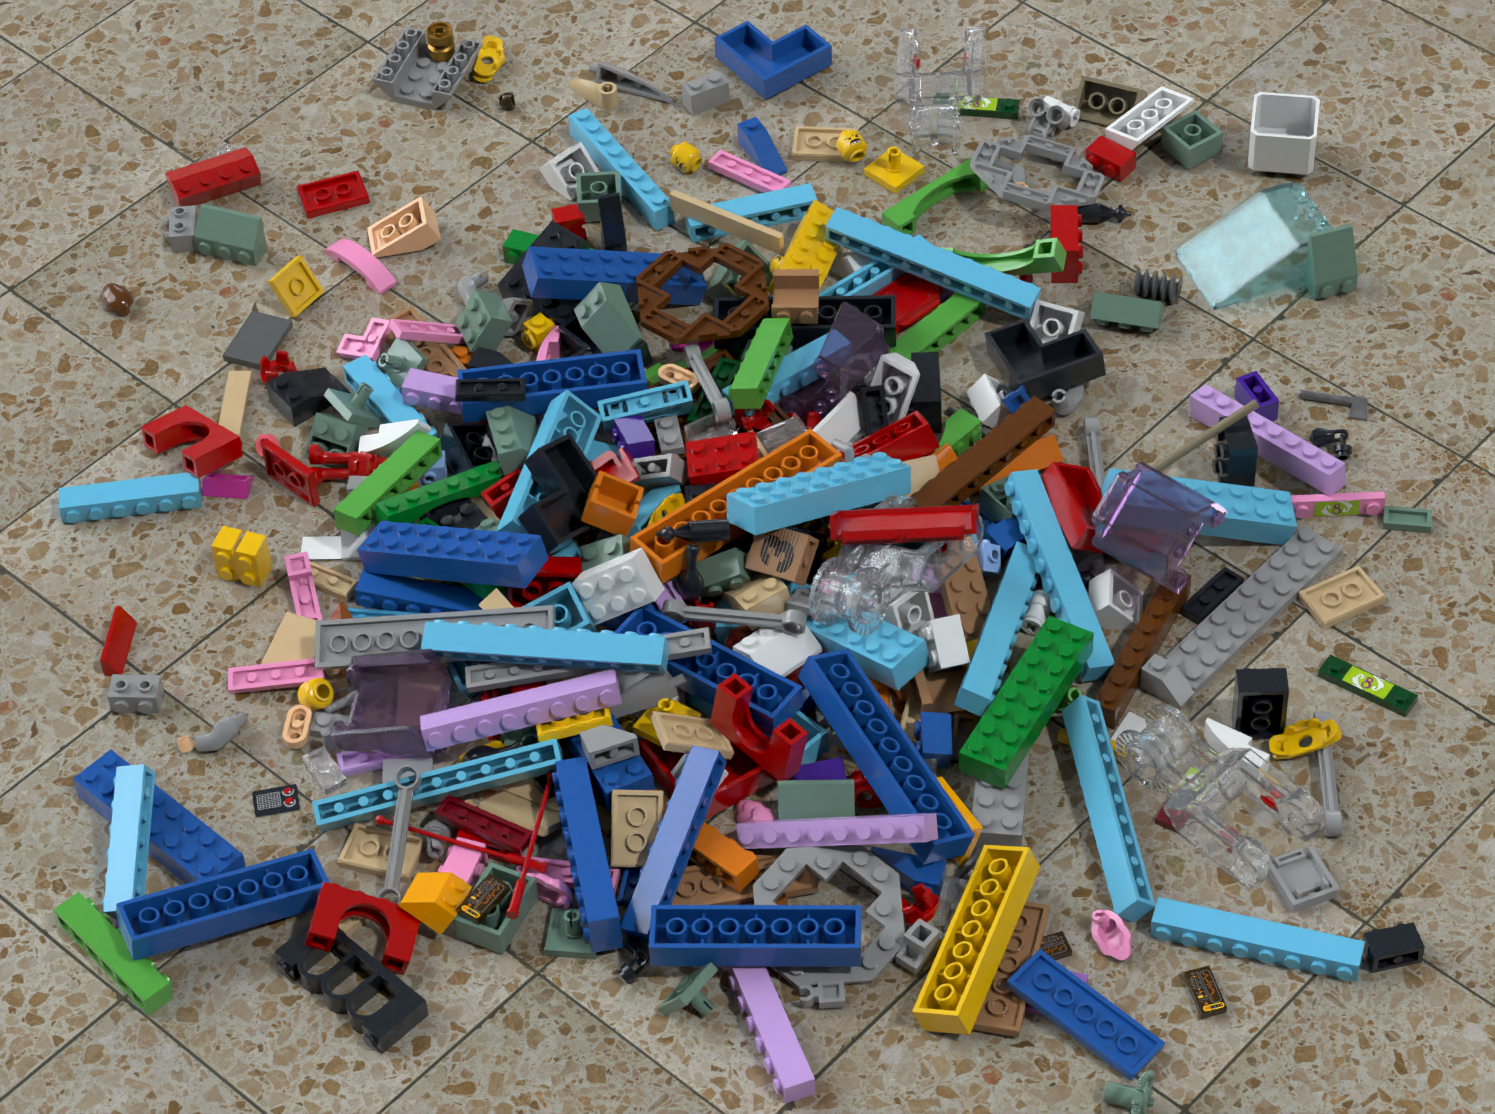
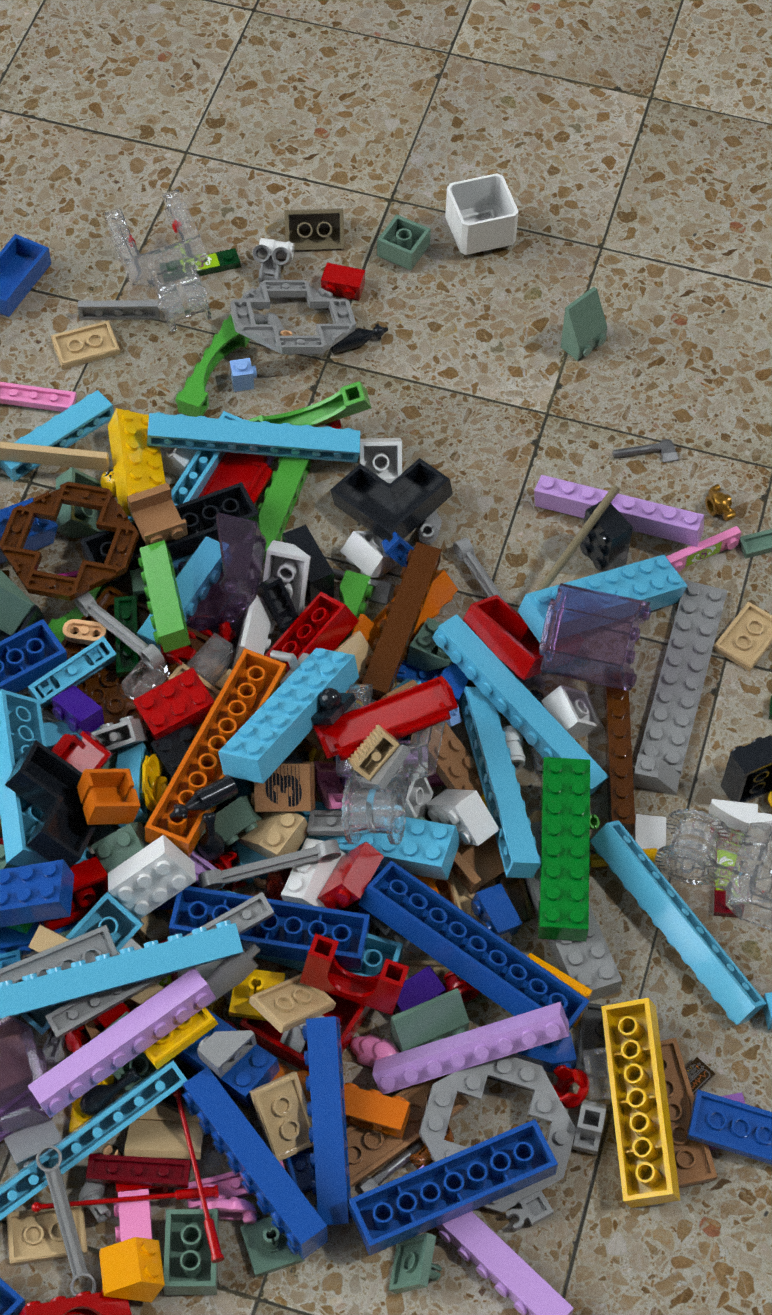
camera: 30 degrees left, 10 degrees up
(483, 899) = (182, 1254): dark brown tile -> none
(633, 948) = (339, 1240): black piece -> none
(669, 435) = (105, 693): light grey plate -> none
(759, 146) = (30, 367): blue slope -> none
(794, 653) = (350, 877): none -> red brick
(851, 145) = (115, 340): yellow head -> none
(861, 497) = (332, 706): none -> black tile
(869, 539) = (373, 752): none -> tan brick
(871, 121) = (119, 310): none -> light grey plate
(875, 556) = (388, 770): none -> light grey tile
(894, 170) = (160, 351): yellow tile -> none
(960, 211) = (242, 374): none -> light blue brick
(1064, 226) = (347, 368): red brick -> none
(1111, 934) = (742, 1045): bright pink arm -> none
(1127, 311) = (434, 424): sand green slope -> none
(1147, 117) = (360, 234): white slope -> none
(1157, 286) = (447, 391): dark grey piece -> none
(1211, 595) = (646, 671): black tile -> none
(1254, 246) = (511, 328): clear light blue windscreen -> none
(1254, 387) = (587, 471): dark purple brick -> none
(1323, 436) = (656, 489): black piece -> none
(1382, 469) = (719, 503): none -> pearl gold piece

